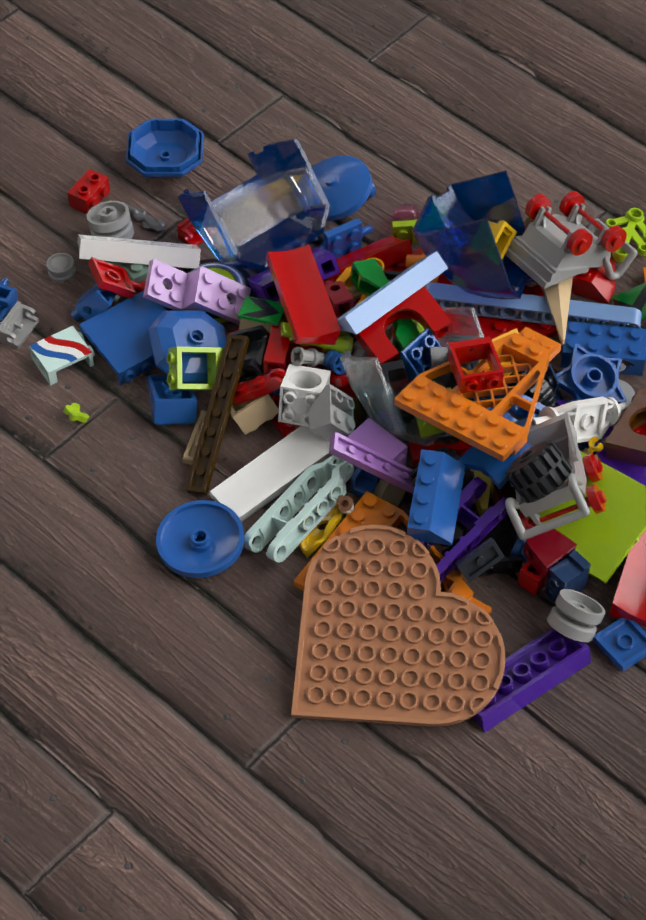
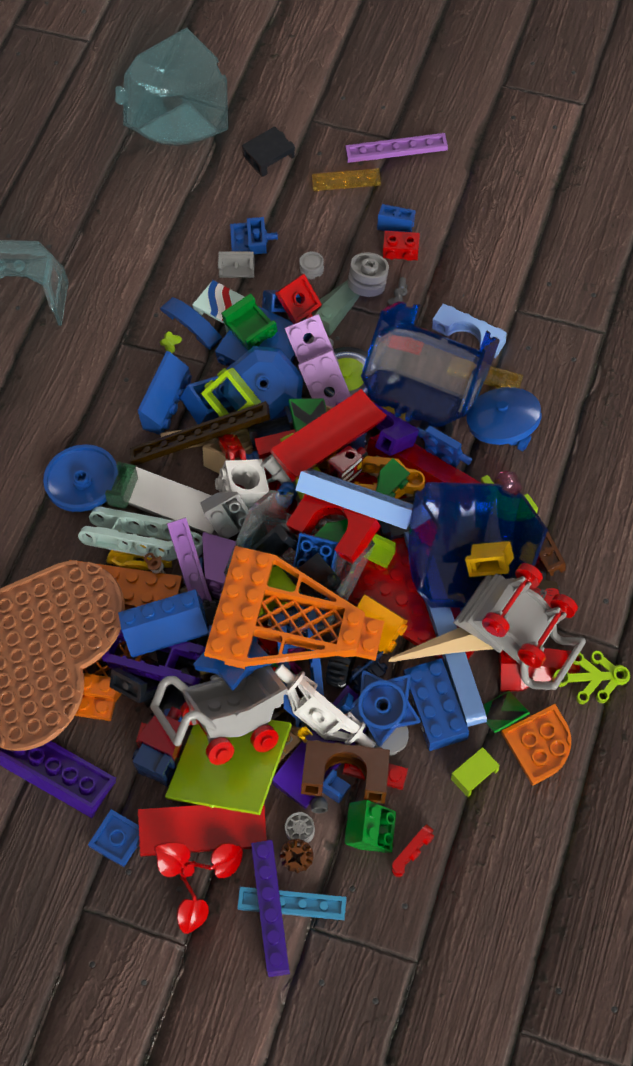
camera: 70 degrees right, 10 degrees up
(55, 183) = (395, 219): none -> blue hinge
(58, 385) = (192, 321): none -> blue slope
(111, 330) = (249, 322): none -> green panel
(138, 251) = (343, 302): white arch -> none
(142, 436) = (164, 394): none -> blue slope
(165, 148) = (473, 262): blue rock -> none
(234, 170) = (450, 320): none -> light blue arch
(239, 497) = (123, 485): none -> clear green panel
(482, 349) = (312, 581): red window -> none
(538, 471) = (203, 688): black wheel -> none
(576, 615) = (115, 785): light grey wheel -> none

